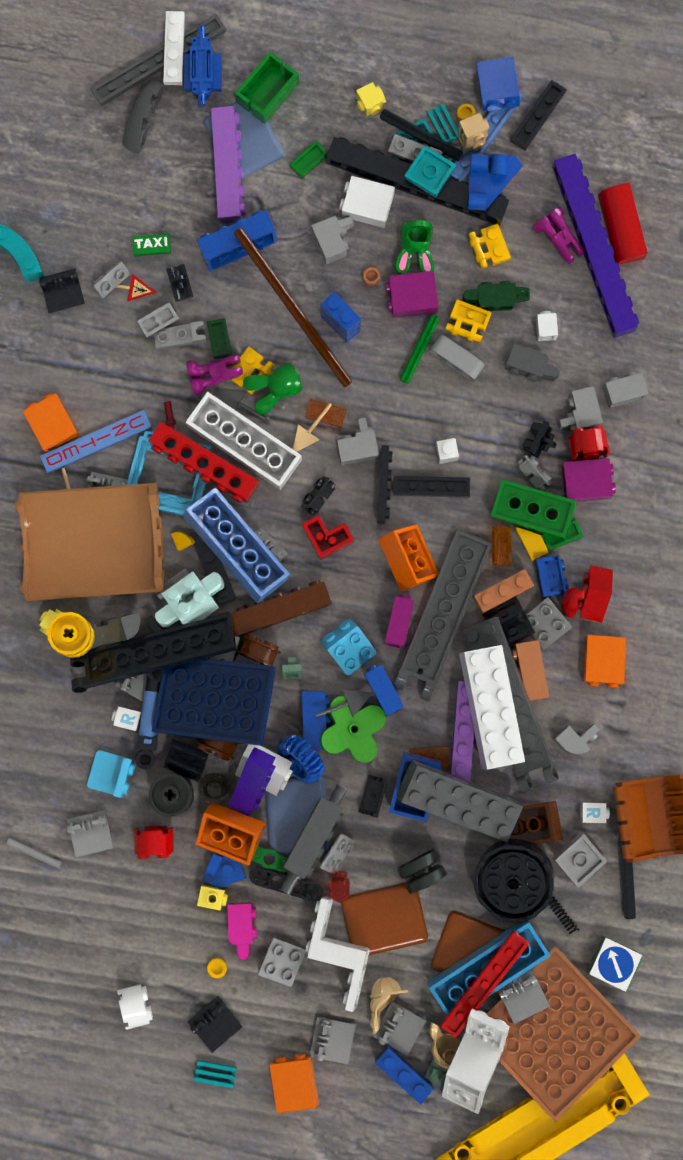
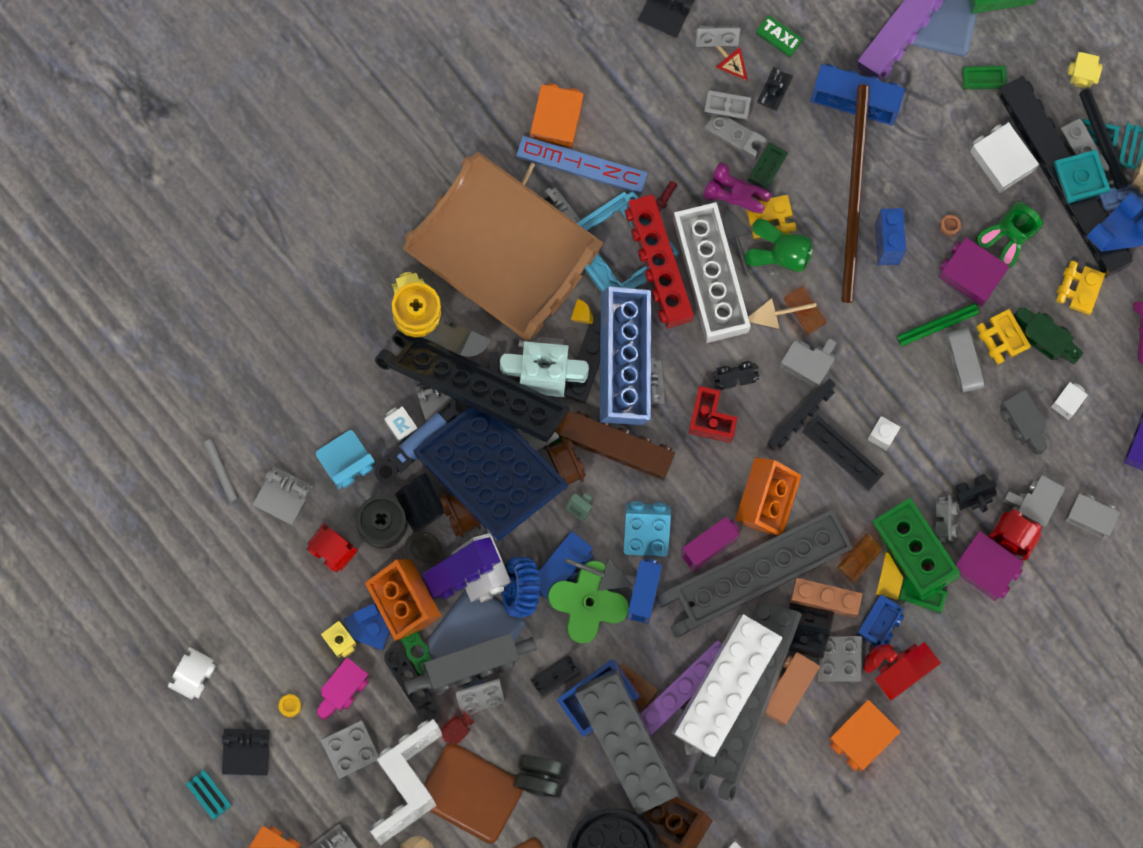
camera: 35 degrees right, 5 degrees down
(330, 237) = (942, 162): light grey hinge -> none
(572, 743) = (773, 787): light grey brick -> none

